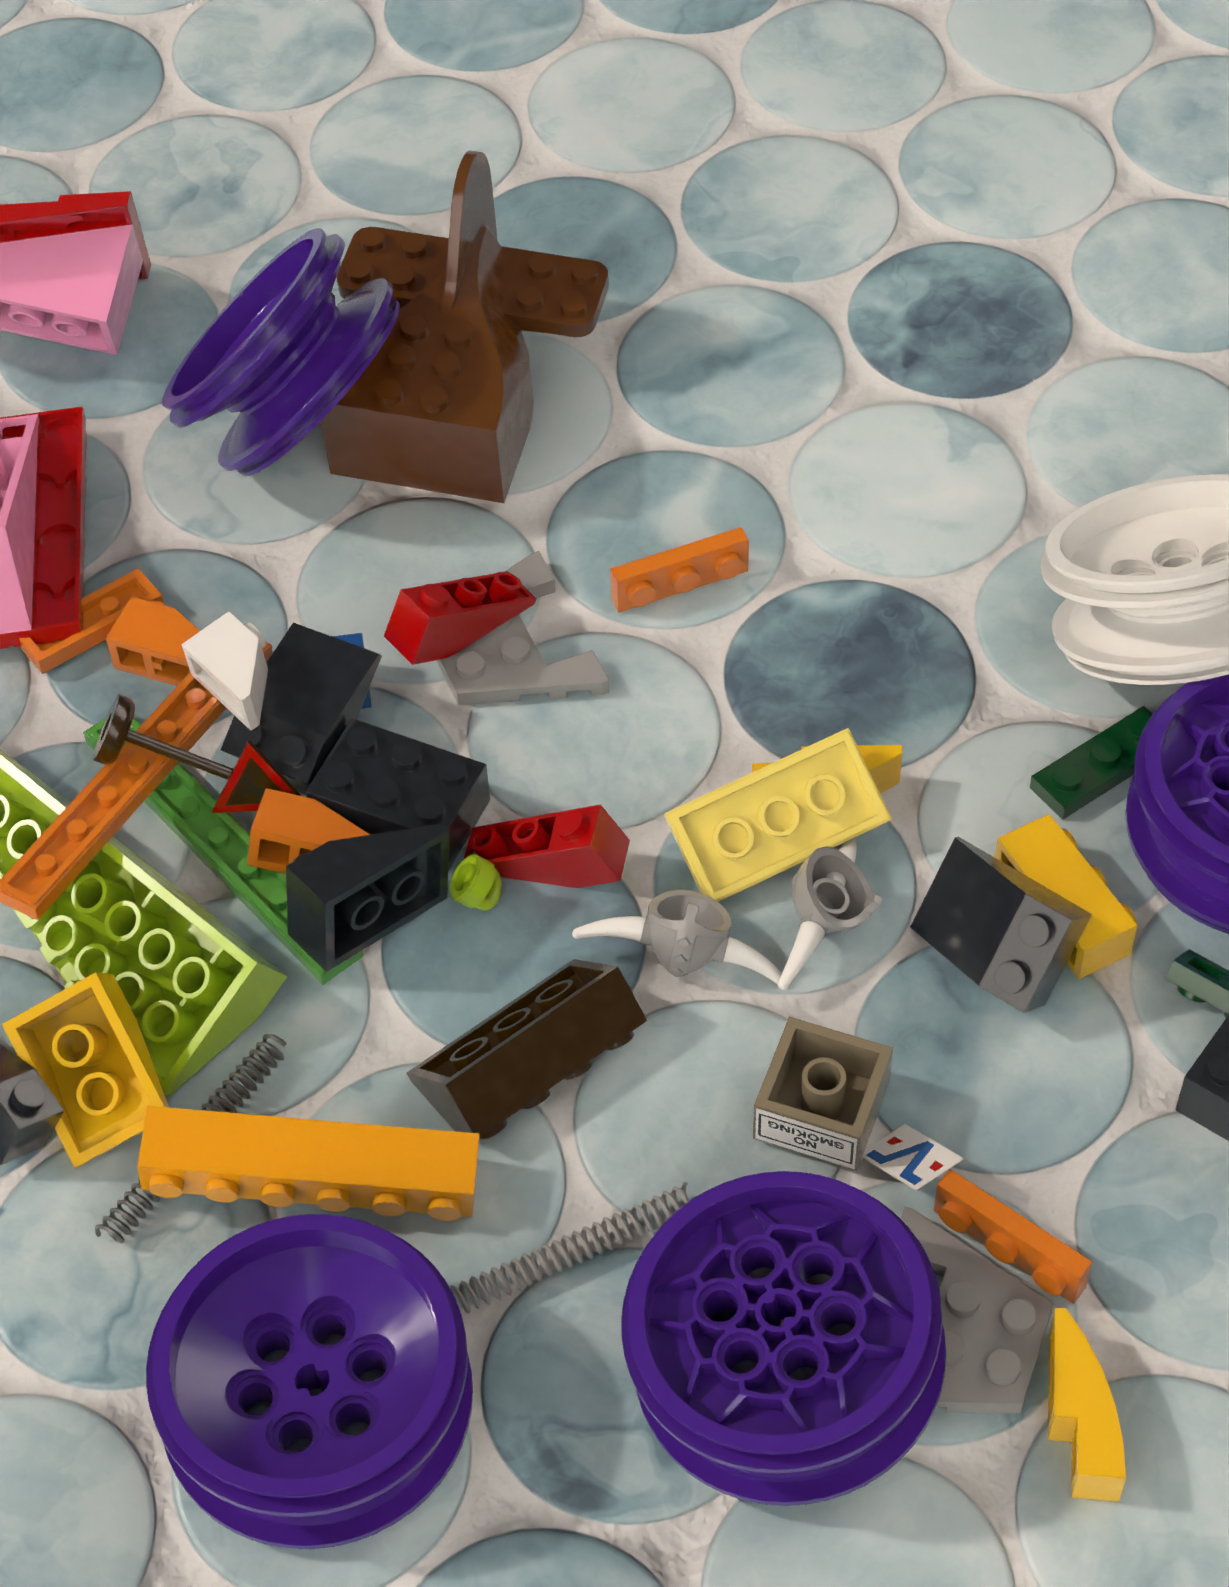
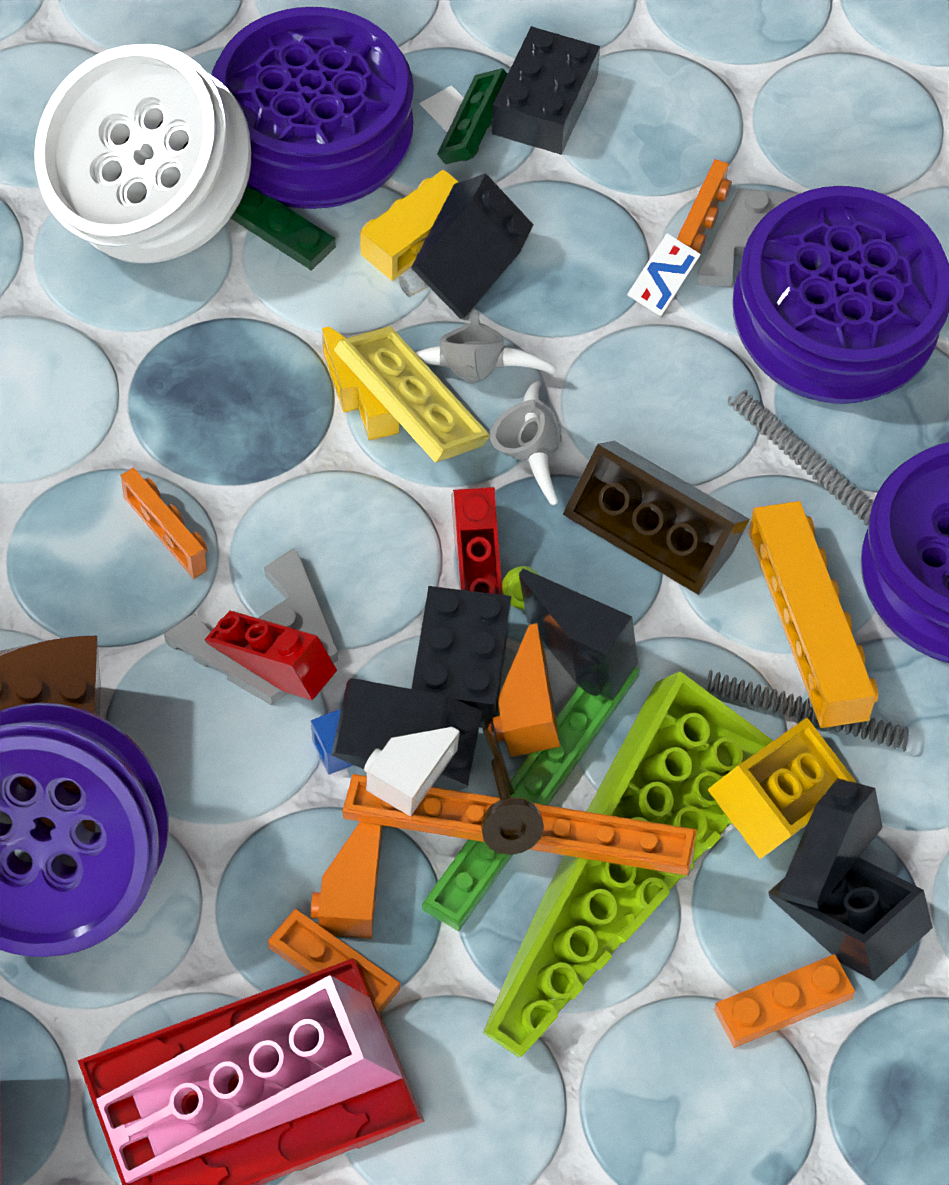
camera: 110 degrees left, 5 degrees up
(822, 1093) = (639, 324): dark tan brick -> none
(1084, 1413) = (808, 161): yellow slope -> none

